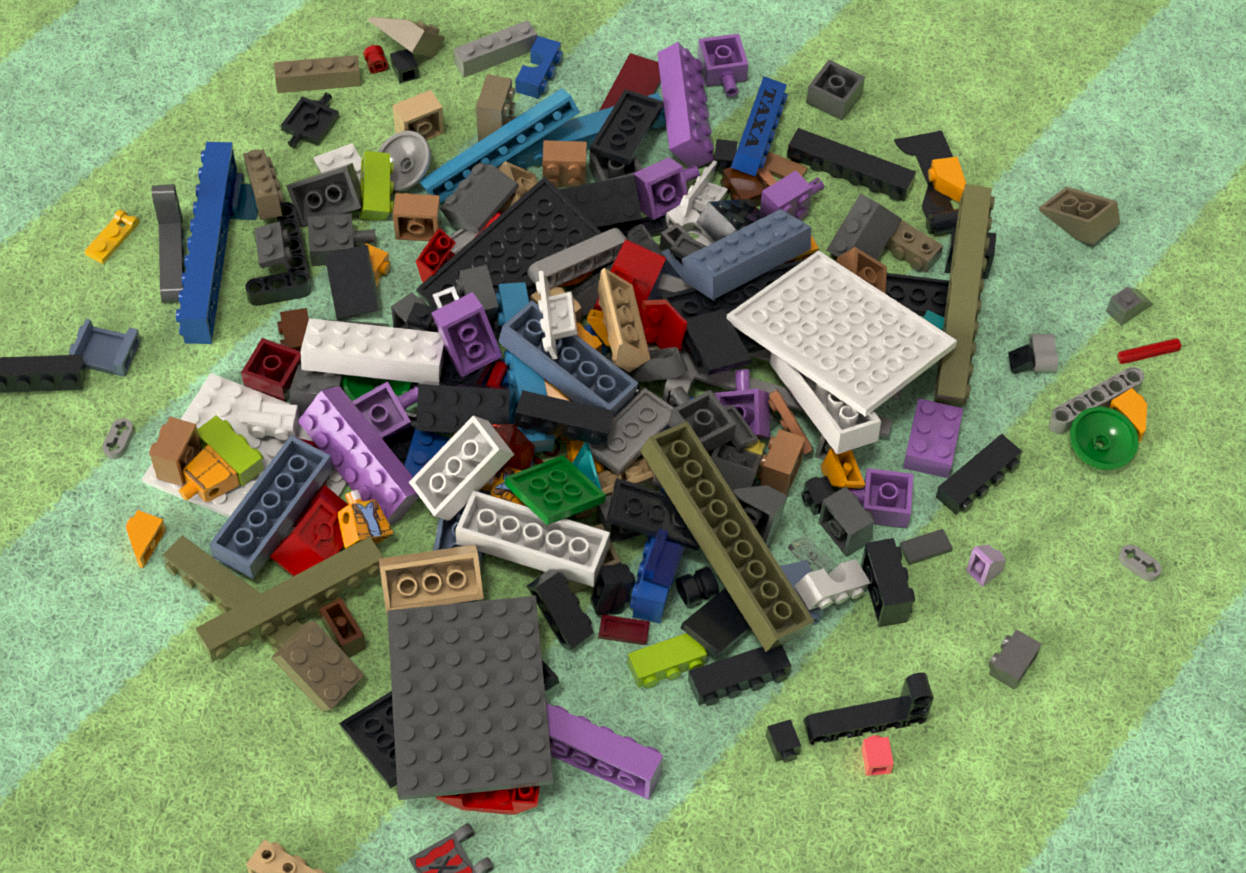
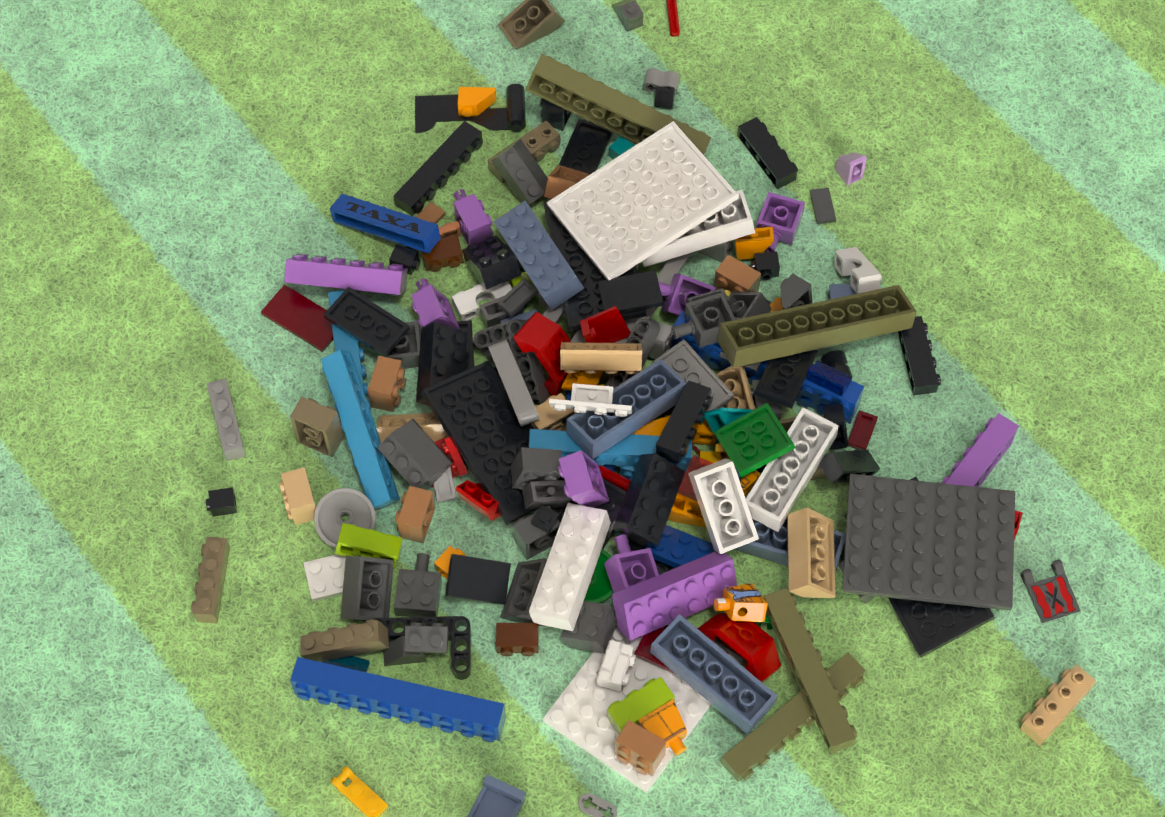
camera: 75 degrees left, 5 degrees up
(144, 534) = (710, 794): light orange slope -> none
(170, 241) = (392, 738): dark grey beam -> none
(271, 369) = (556, 661): dark red brick -> none
(310, 120) = (265, 595): black plate -> none
(317, 666) = (874, 658): dark tan brick -> none
(342, 627) = (835, 638): reddish brown brick -> none
(375, 59) = (208, 526): red wheel -> none
(414, 36) = (191, 486): slope -> none
(534, 80) = (247, 378): blue arch -> none
(665, 660) = (898, 403): lime brick -> none
(703, 192) = (448, 279): white bracket -> none
(717, 624) = (875, 357): black tile -> none
(723, 62) = (299, 236): medium lavender brick -> none
(783, 741) = (980, 337): black brick -> none
(789, 421) = (698, 267): nougat plate -> none
(806, 549) = (821, 282): clear plate -> none
(835, 89) = (356, 159): dark grey brick -> none
(846, 521) = (800, 249): dark grey brick -> none
(876, 716) = (968, 274): black beam -> none
(877, 755) = (1000, 278): coral brick -> none
(889, 585) = (866, 233): black brick -> none
(933, 438) = (736, 170): medium lavender brick -> none
(1014, 659) = (933, 170): flat silver brick -> none
(1102, 393) = (714, 58): light grey beam -> none
(1111, 430) = (757, 55): green dish -> none
(1134, 408) = (732, 39): light orange slope -> none
(1140, 563) = (863, 73): light grey beam -> none

